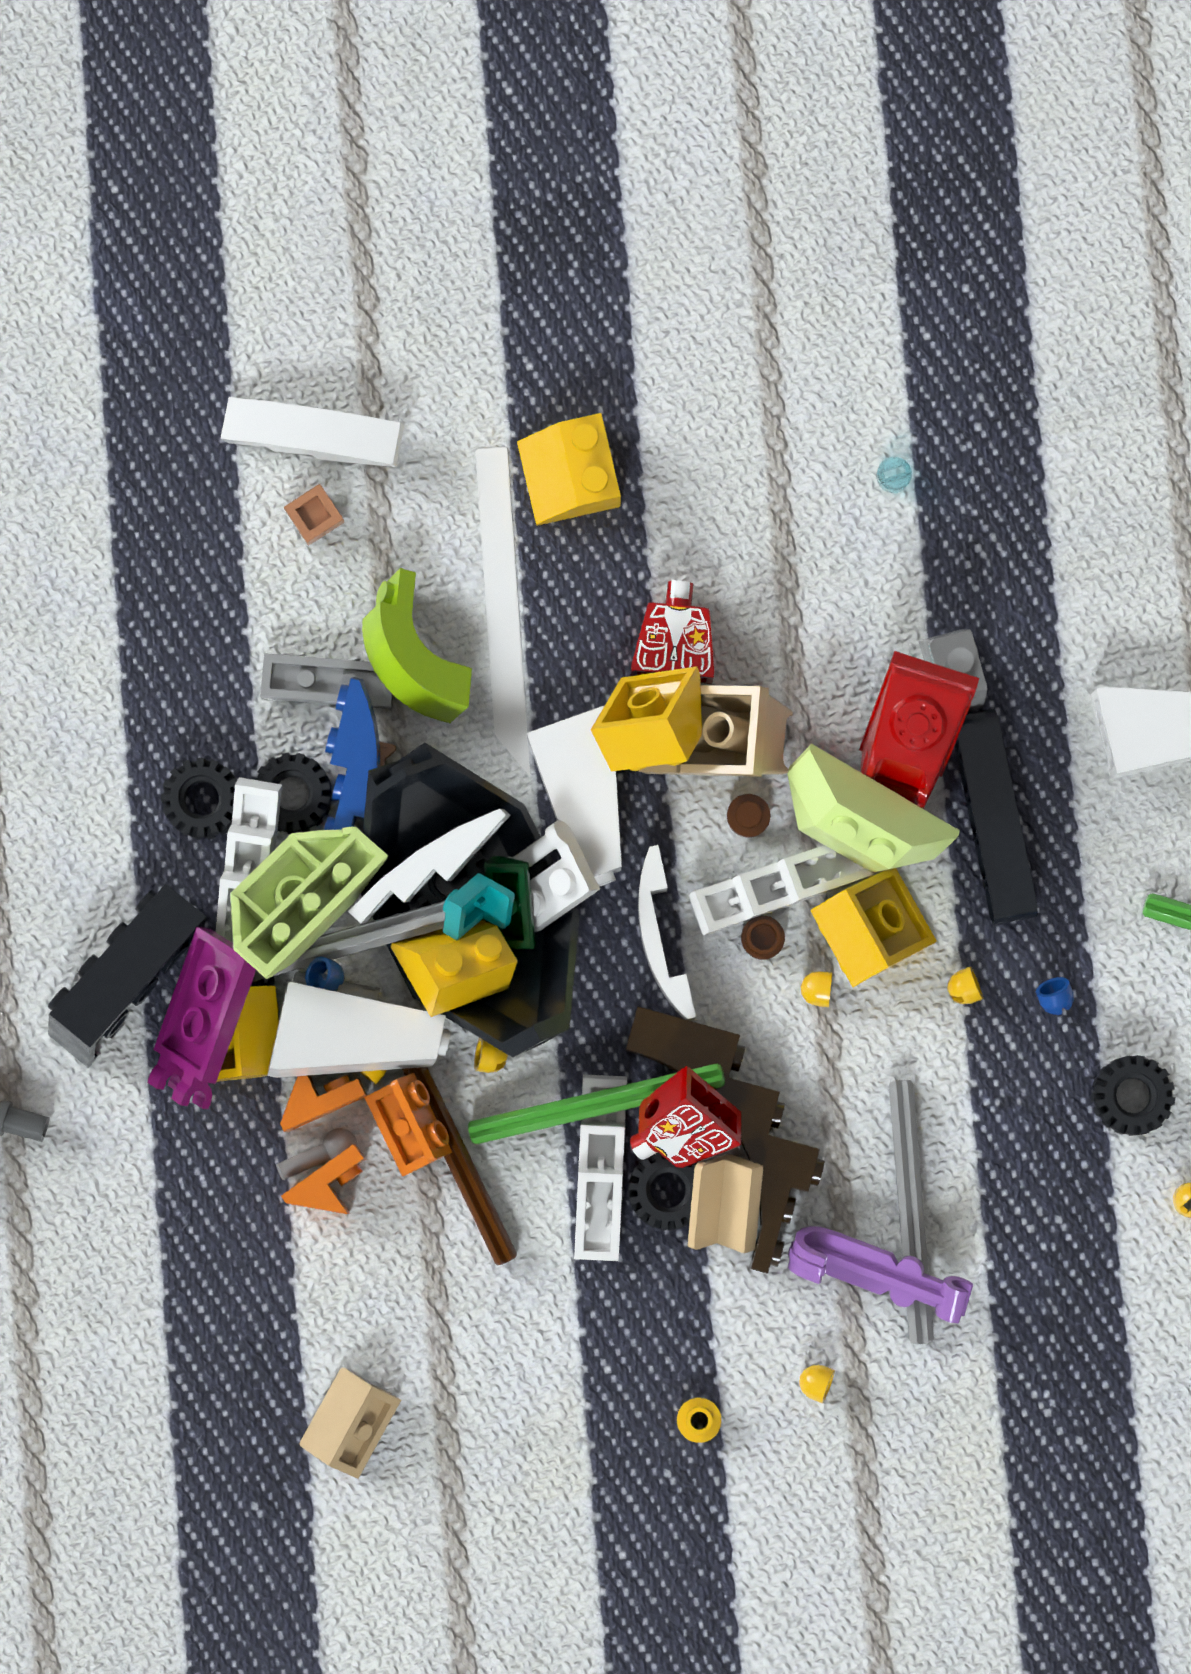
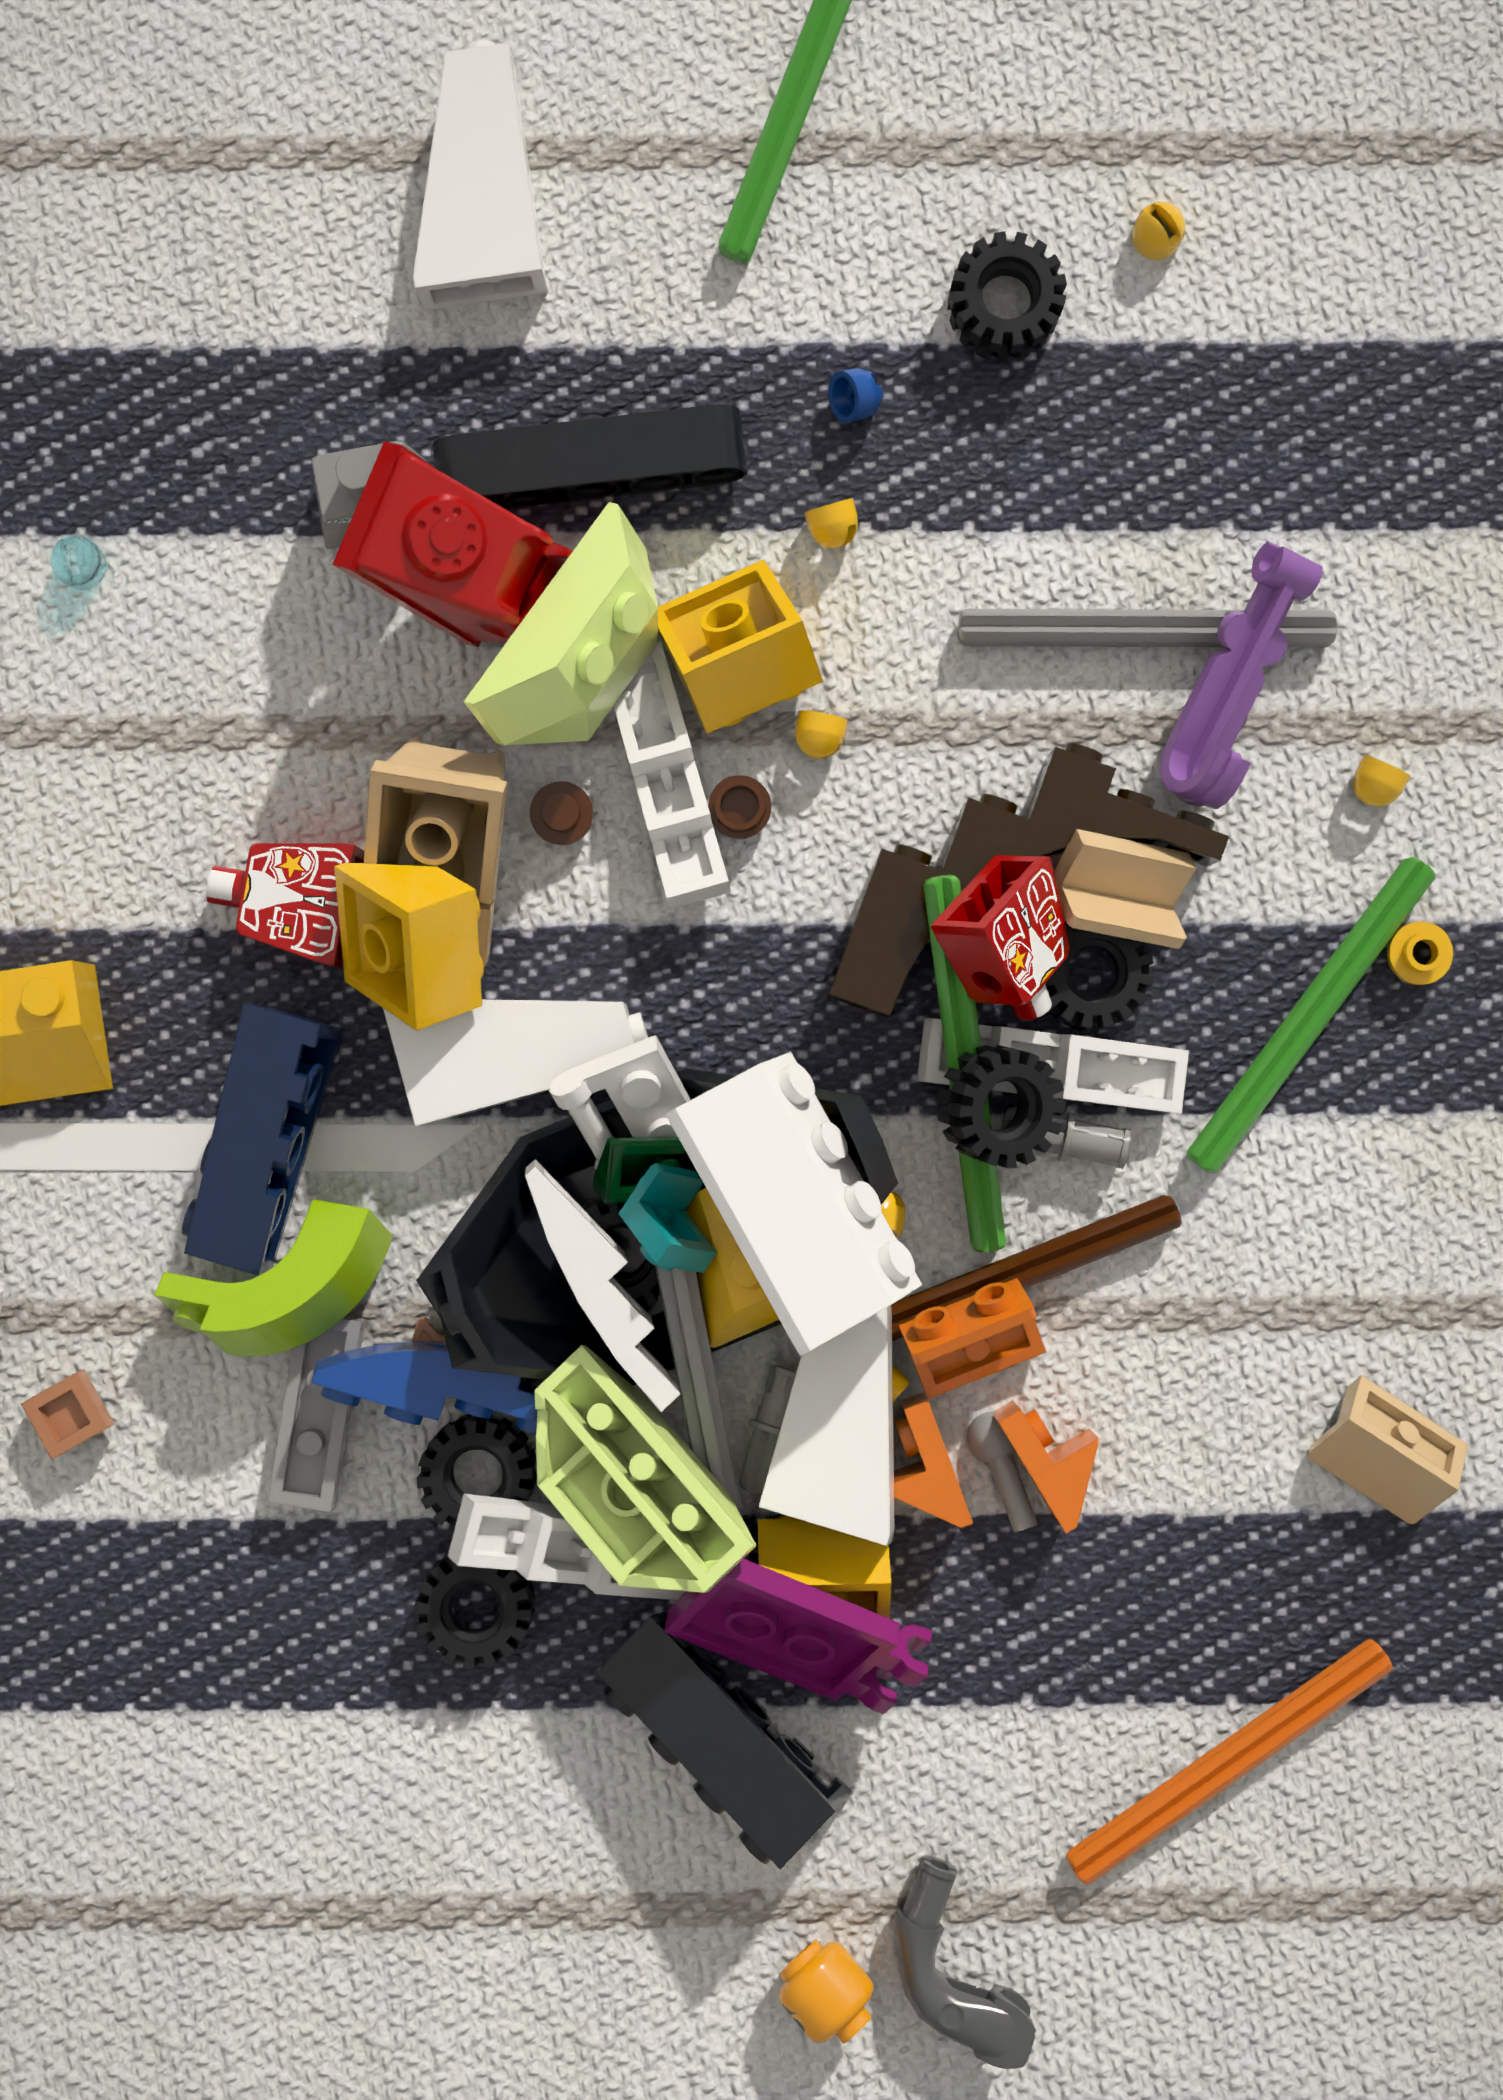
camera: 85 degrees left, 5 degrees up
(127, 1327) = (1229, 1761): none -> orange axle
(316, 975) = (759, 1447): blue hinge -> none
(496, 988) = (795, 1201): none -> white slope
(510, 629) = (260, 1137): none -> dark blue wedge
(552, 1179) = (1085, 1140): none -> light grey axle
(564, 1152) = (1033, 1110): none -> black tyre
(650, 1346) = (1311, 1014): none -> bright green axle
(675, 988) = (646, 956): white slope -> none

